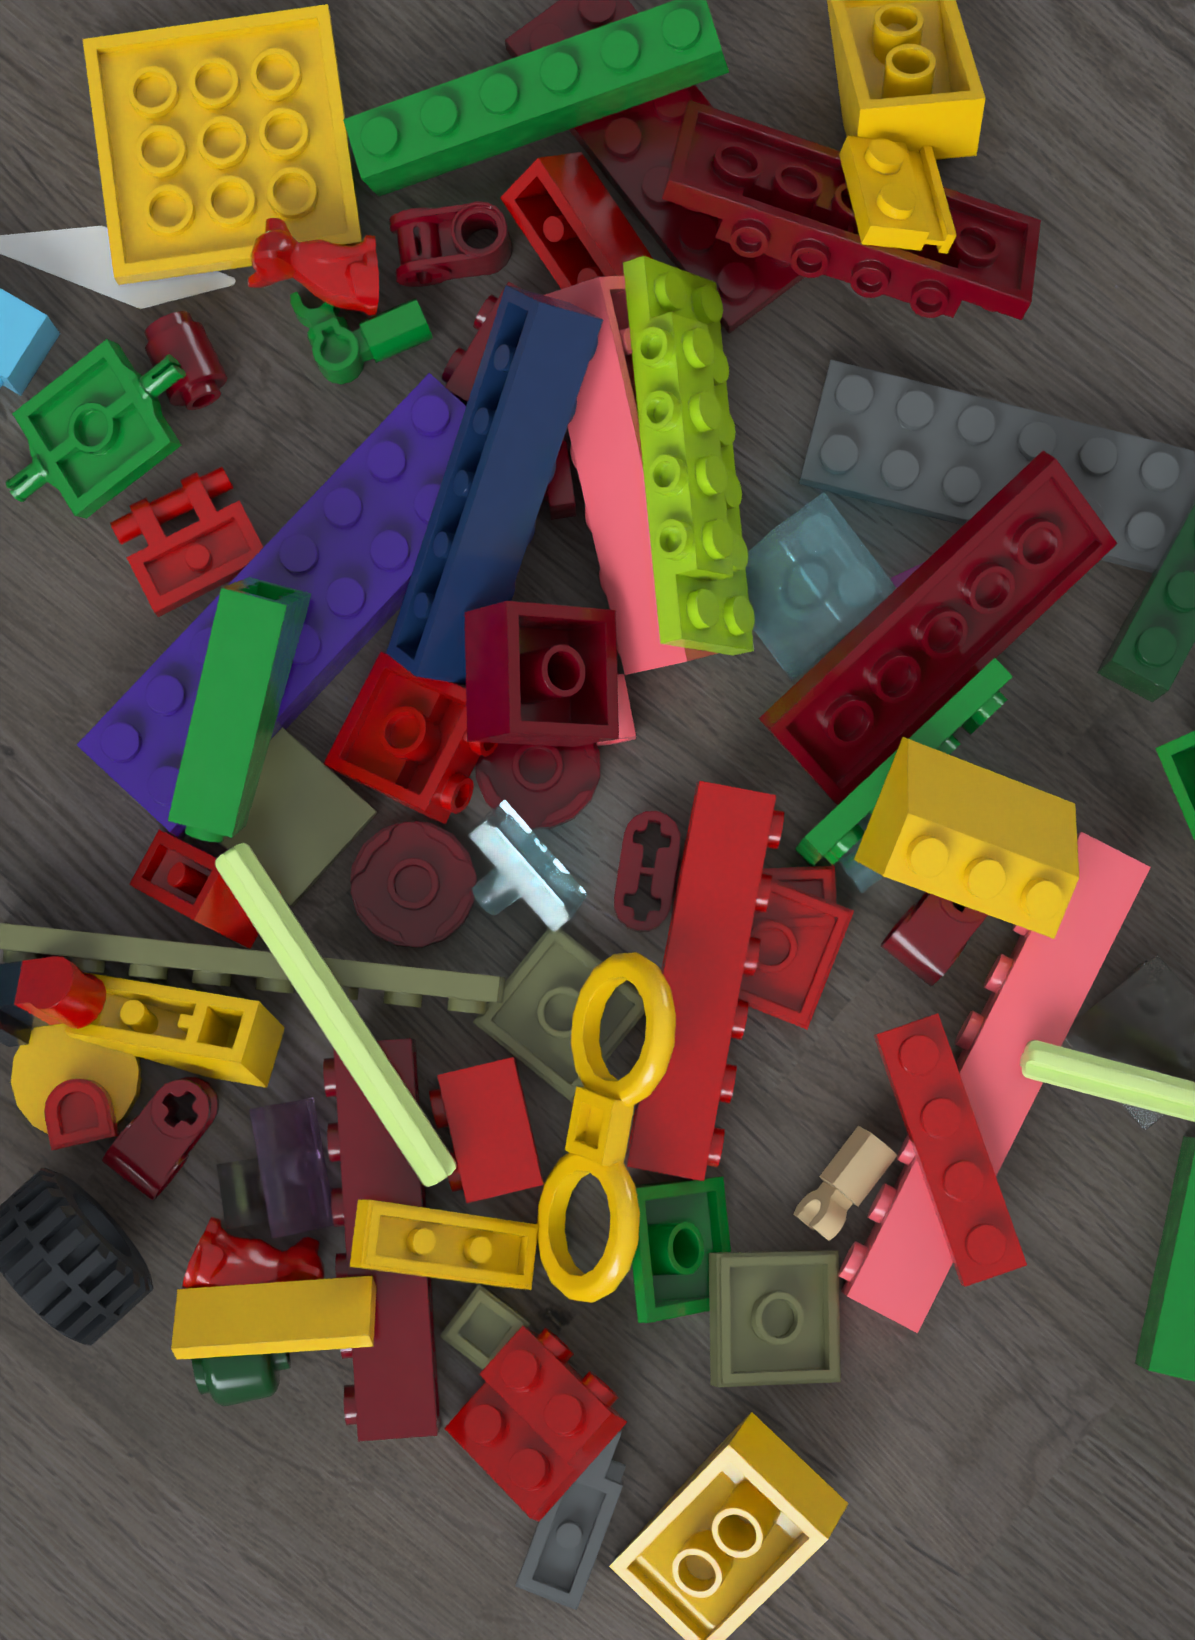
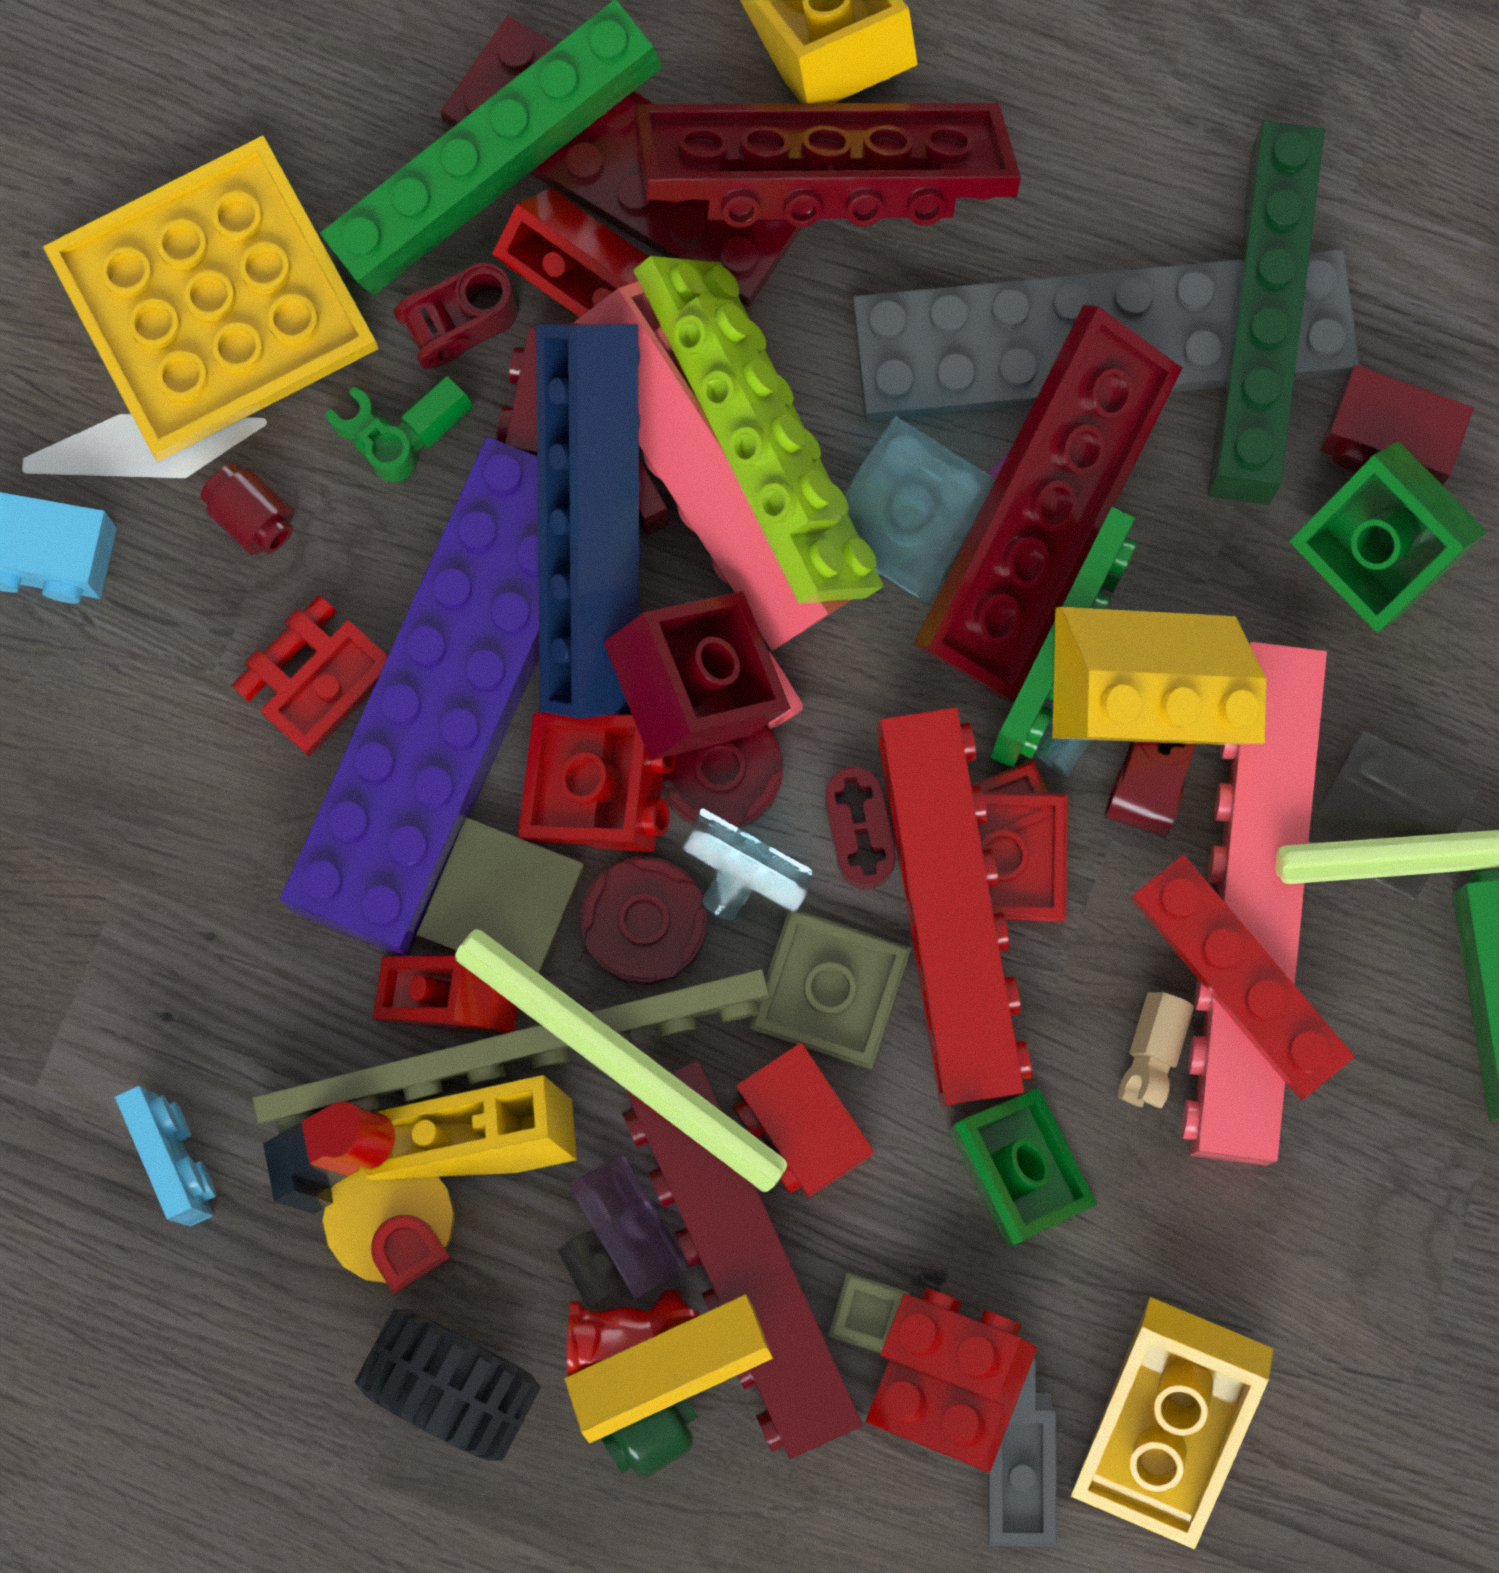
camera: 20 degrees left, 5 degrees down
(96, 429) = (187, 601): green plate -> none
(157, 1142) = (491, 1254): dark red piece -> none
(237, 706) = (424, 805): green slope -> none
(330, 271) = (358, 377): red animal -> none
(443, 1245) = (802, 1242): yellow tile -> none
(602, 1126) = (910, 1075): yellow bar -> none
(774, 1317) = (1137, 1200): olive tile -> none
(896, 195) = (859, 123): yellow plate -> none

